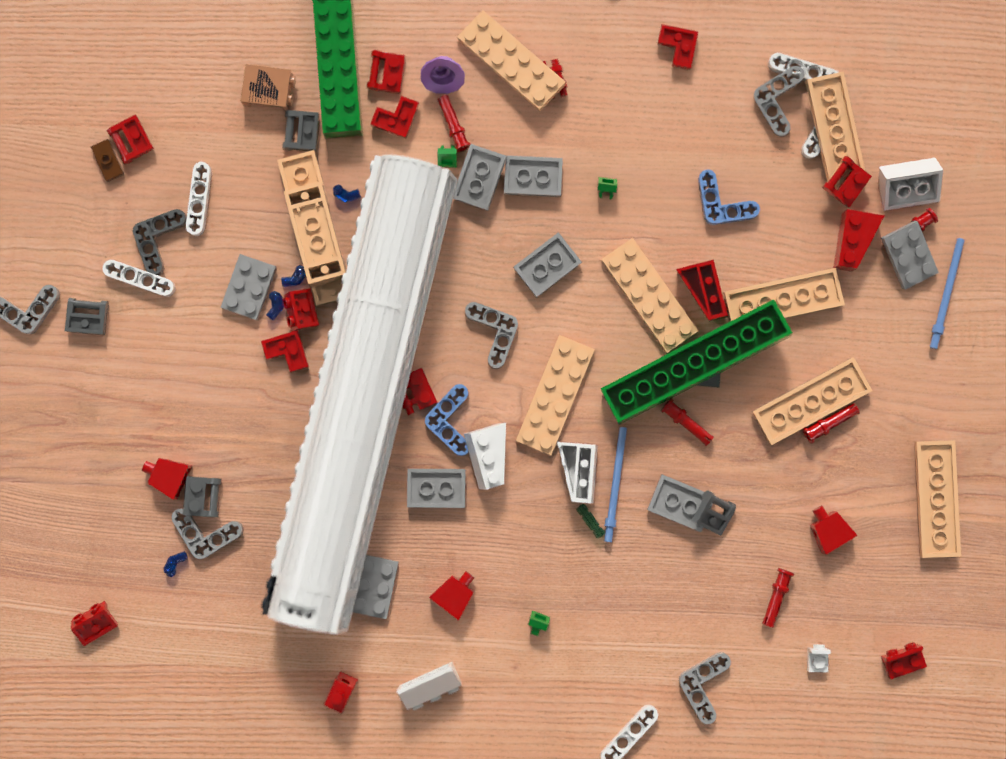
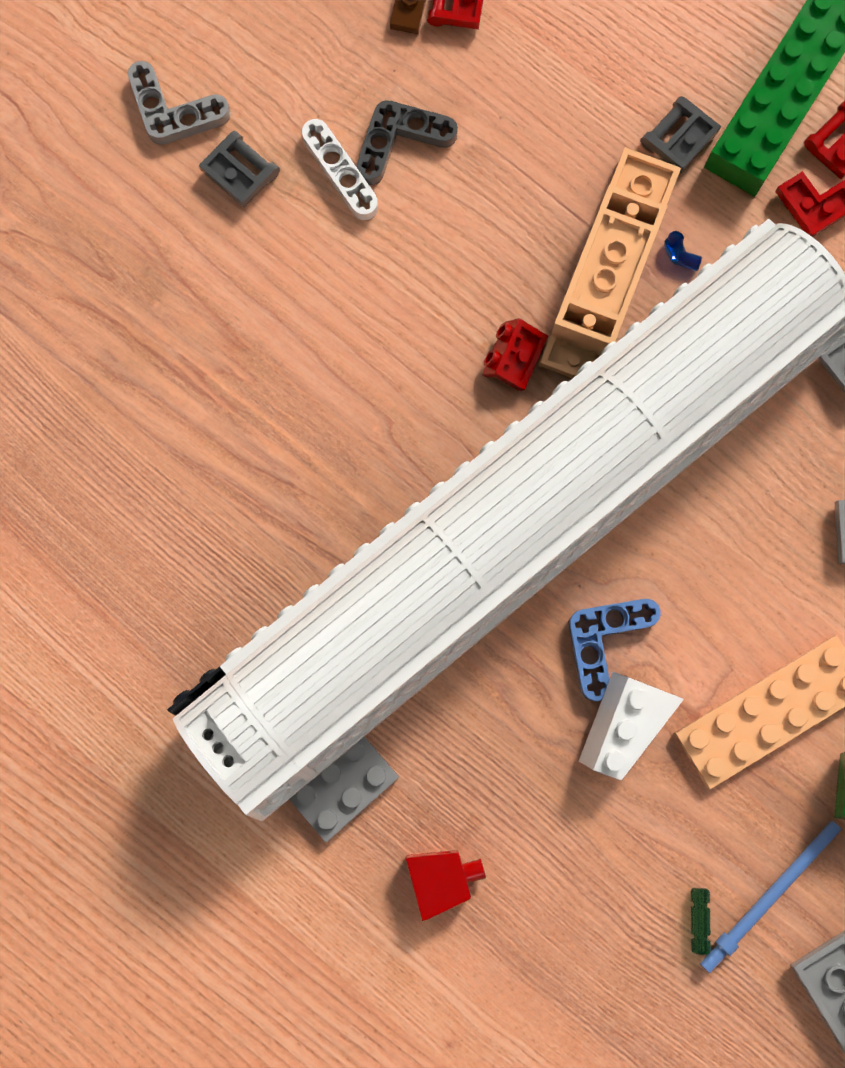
camera: 40 degrees right, 5 degrees down
(167, 476) = (186, 439): red torso -> none
(172, 561) = (107, 553): clear blue arm -> none
(195, 198) = (487, 126): white beam -> none
(195, 496) = (201, 490): dark grey plate -> none
(199, 539) = (164, 550): light grey beam -> none
(248, 287) = (469, 278): light grey plate -> none
(267, 86) = (679, 49): nougat panel -> none
(277, 305) = (492, 321): clear blue arm -> none
(288, 345) = (465, 386): red plate -> none
(296, 279) = (539, 311): clear blue arm -> none
(340, 692) = (191, 897): red torso -> none
(421, 391) = (595, 573): red plate -> none
(429, 686) = (315, 982): white slope -> none
(436, 488) = (522, 716): light grey plate -> none
(502, 331) = (761, 574): light grey beam -> none
(538, 622) = (528, 1008): green tile -> none
(580, 470) = (739, 839): white wedge -> none

